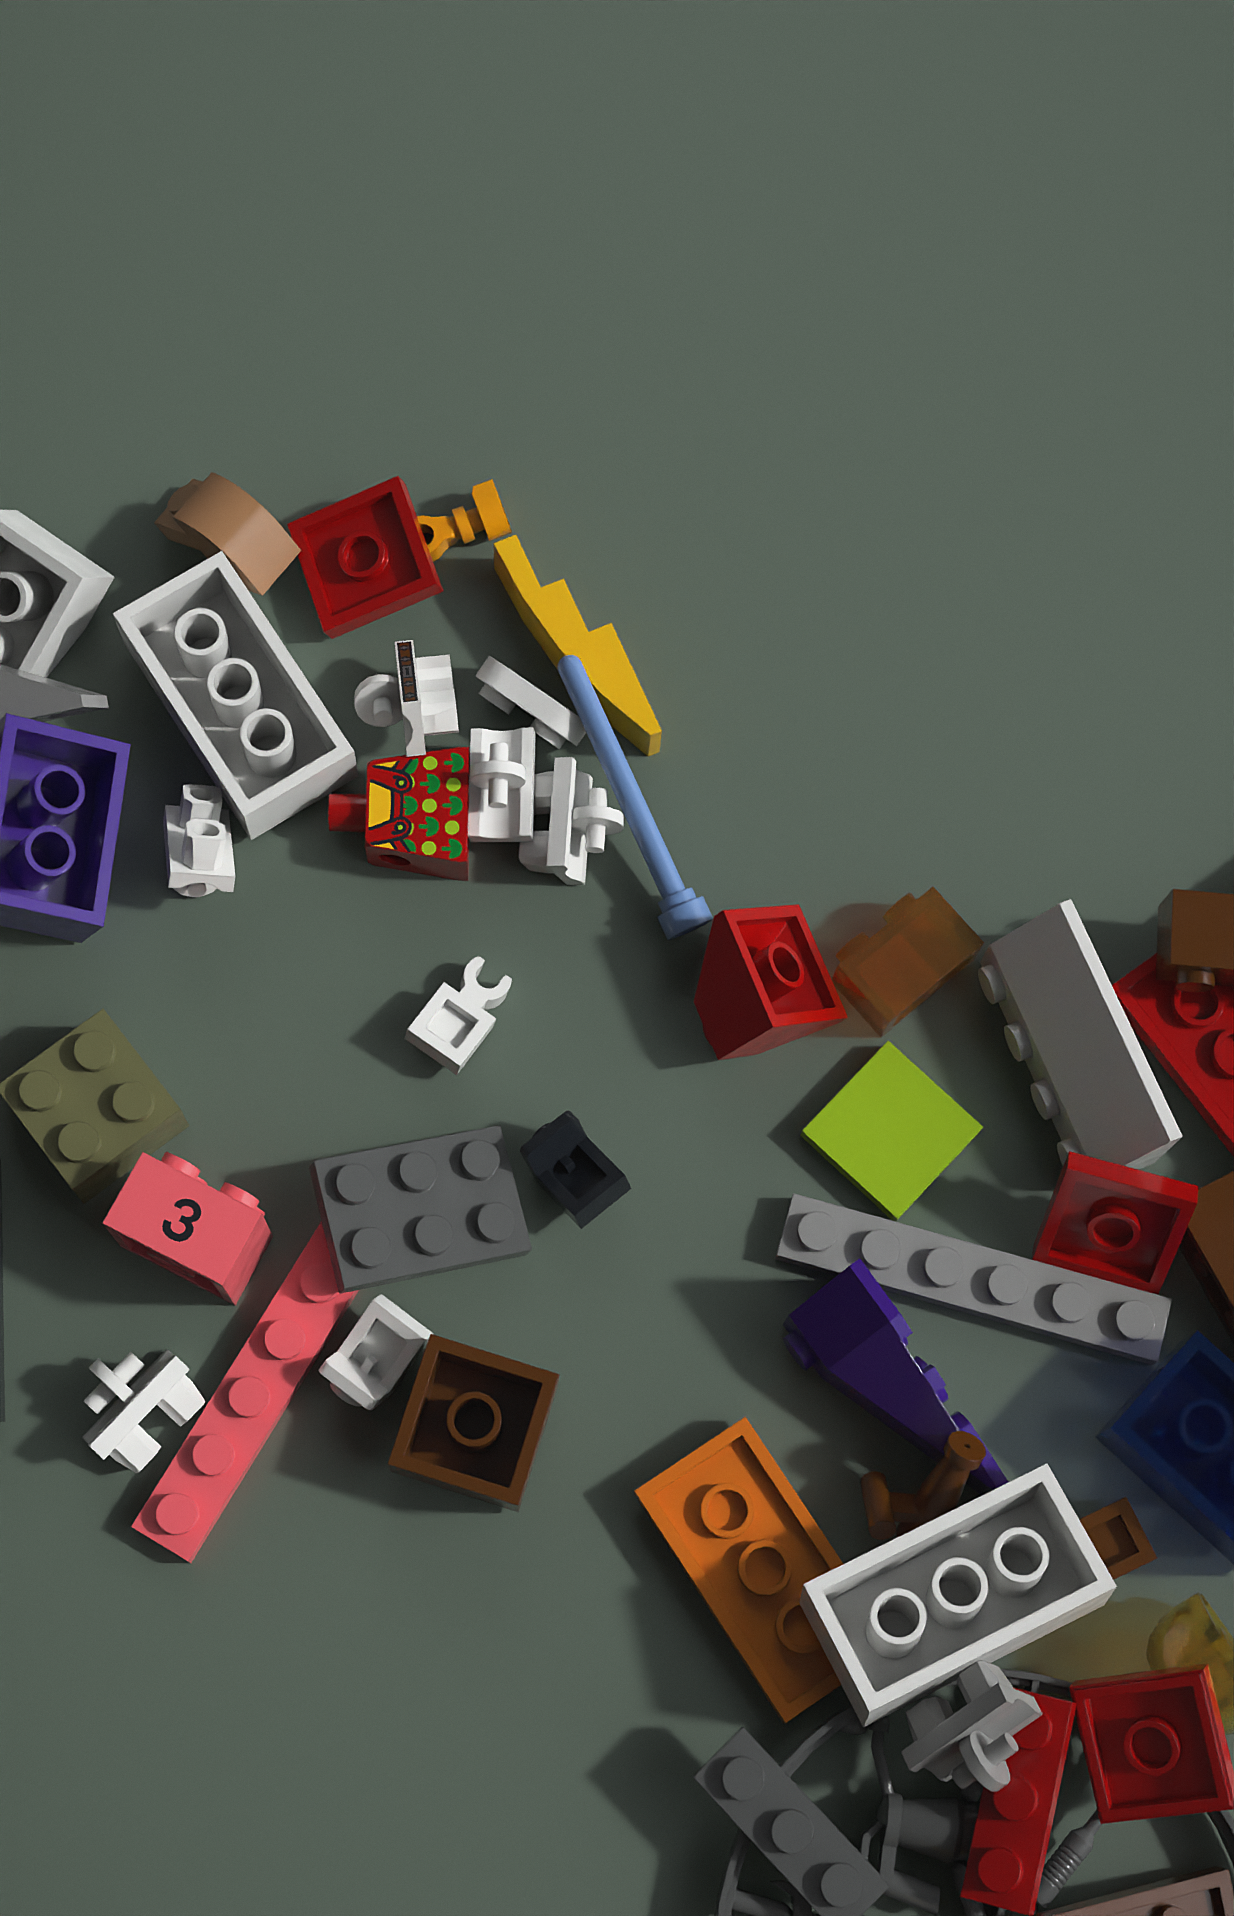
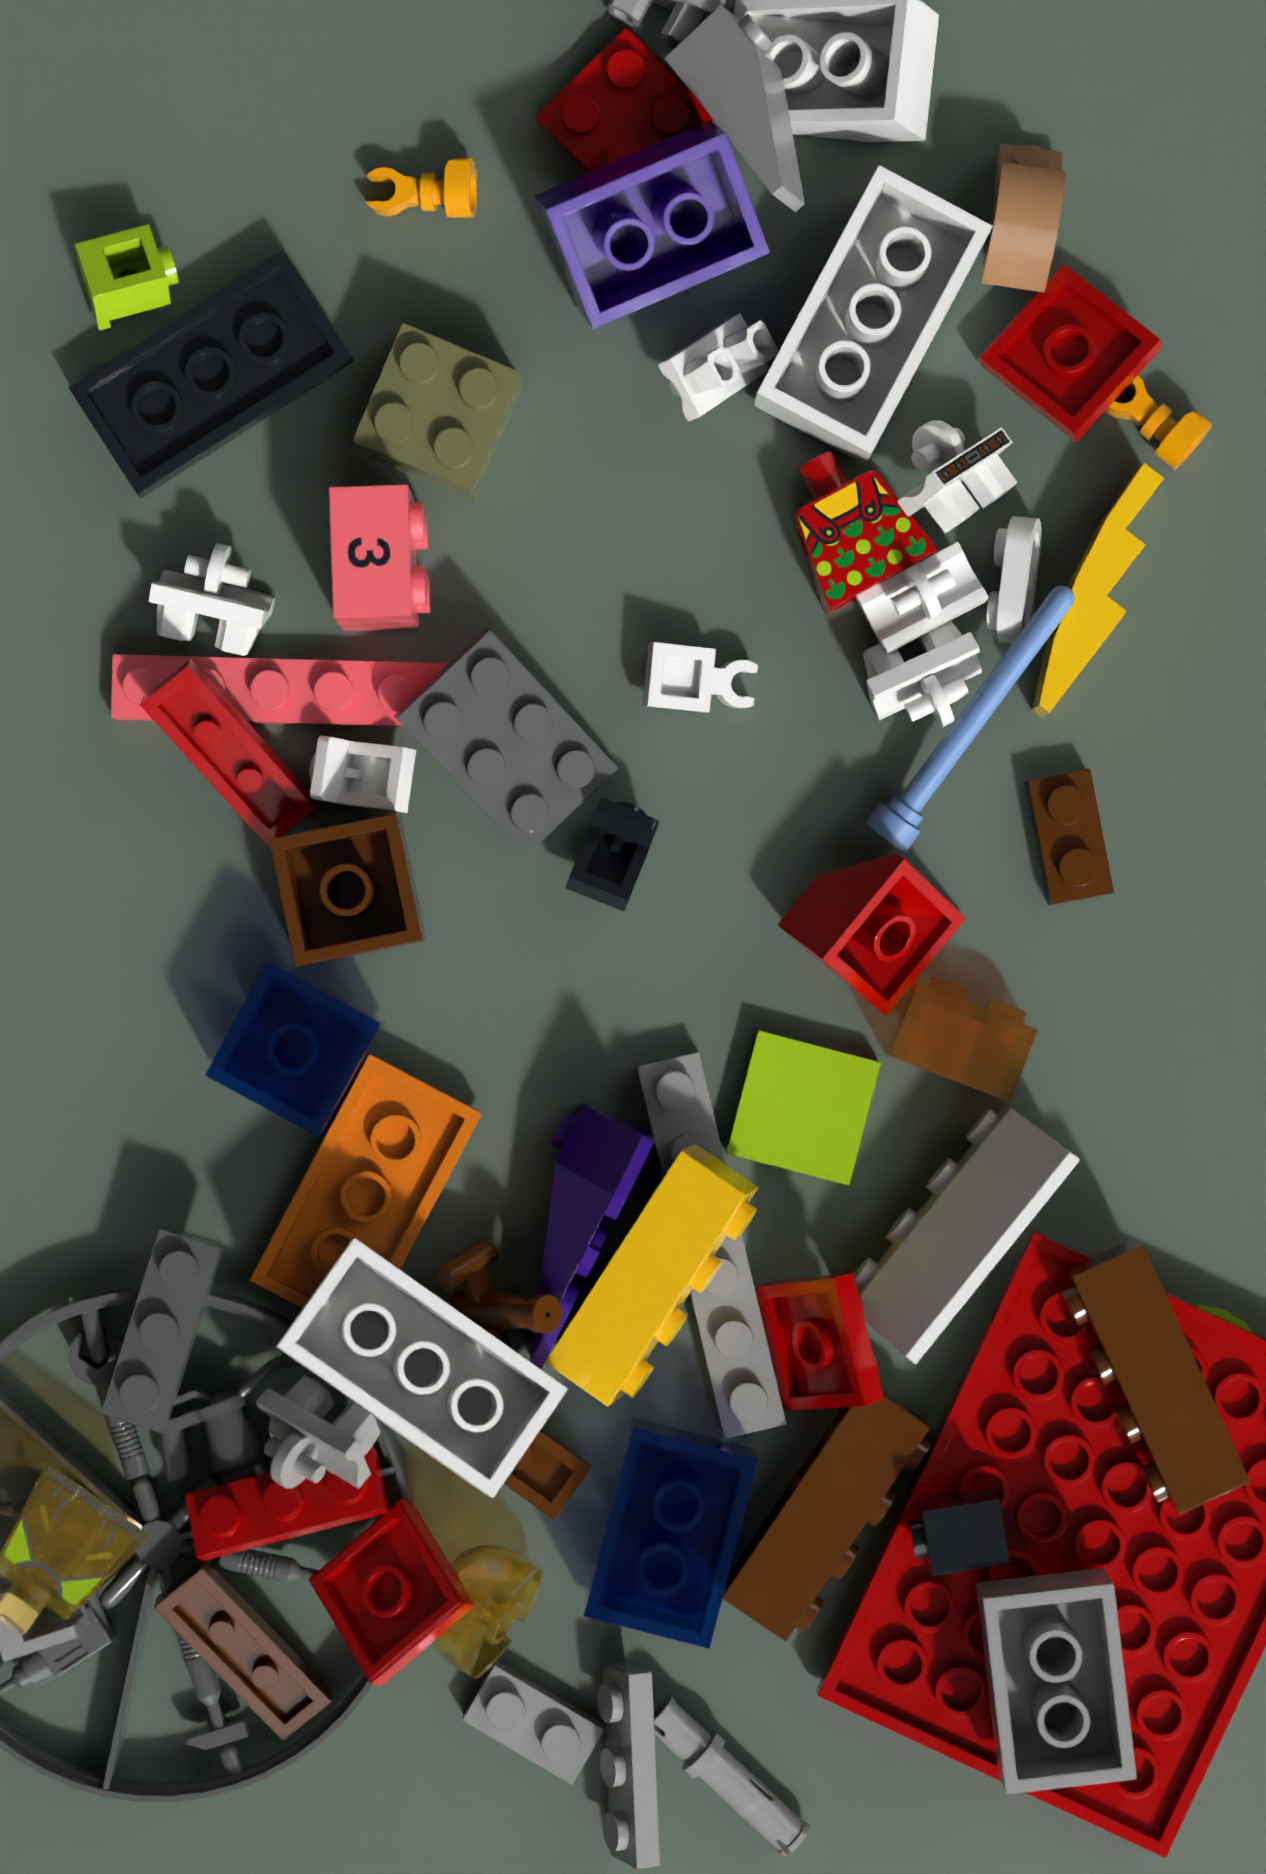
camera: 70 degrees right, 15 degrees up
(284, 1464) = (228, 752): none -> red plate
(593, 1552) = (295, 1048): none -> clear blue brick
(775, 781) = (1069, 836): none -> reddish brown plate
(978, 1340) = (653, 1275): none -> yellow brick

